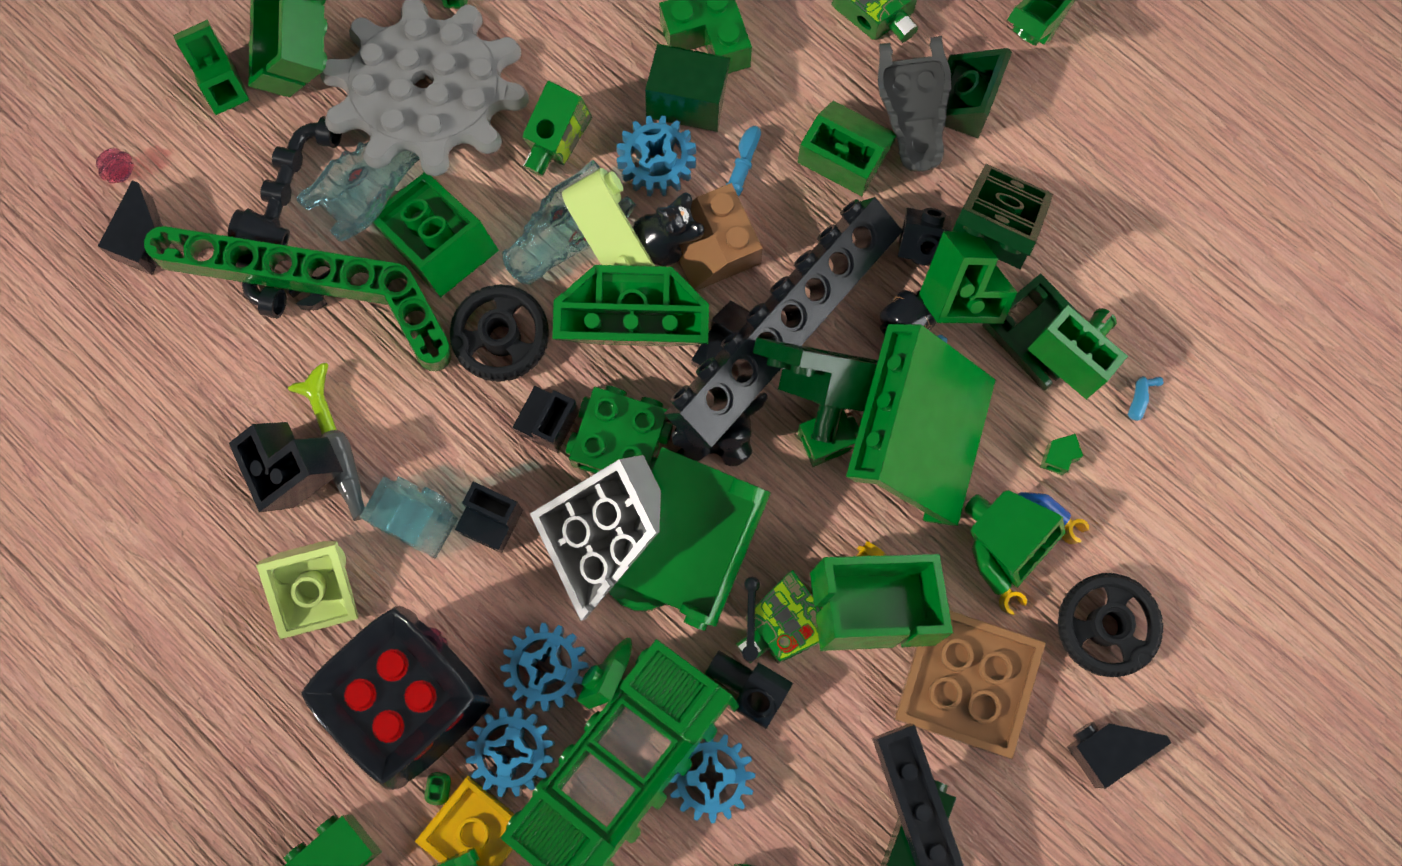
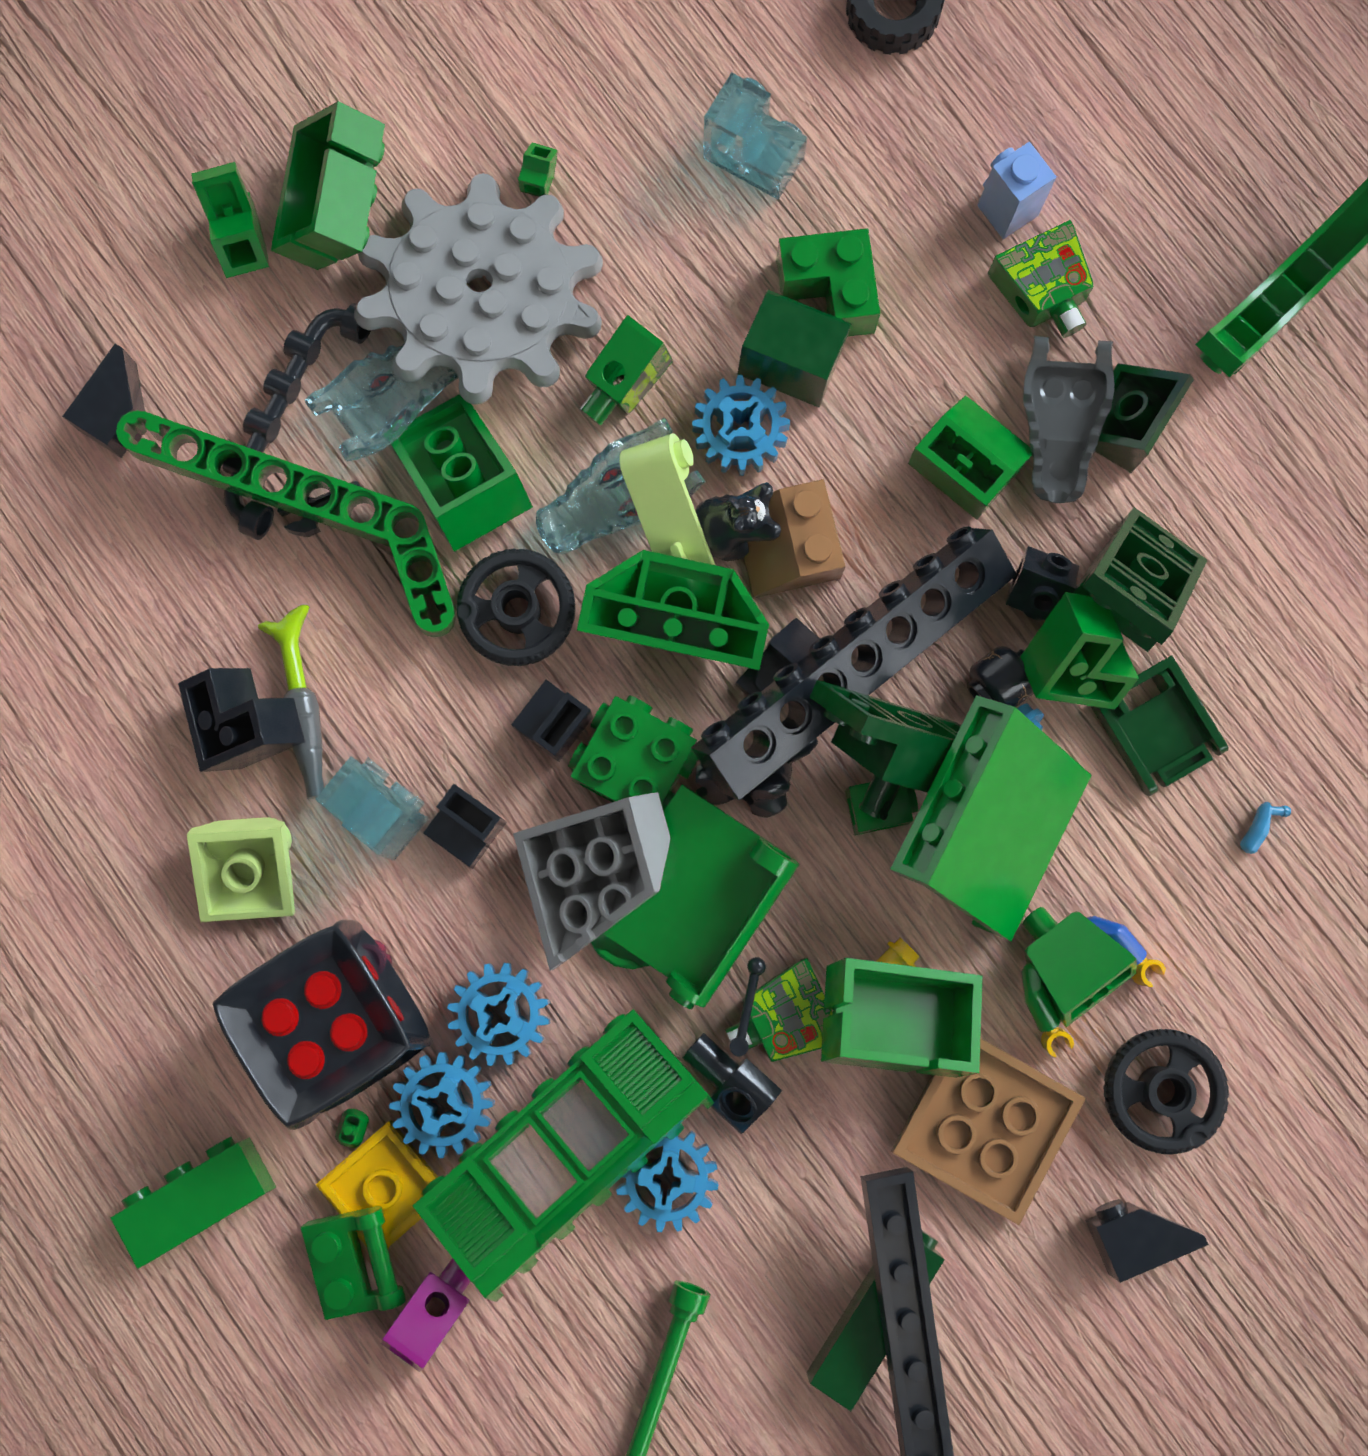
camera: 10 degrees right, 5 degrees up
(114, 165) = (97, 318): clear pink plate -> none
(255, 227) = (251, 430): black cone -> none
(603, 679) = (565, 1041): green plate -> none
(742, 165) = (851, 433): dark azure piece -> none
(1061, 453) = (1150, 877): green piece -> none
(1079, 349) = (1199, 760): green brick -> none

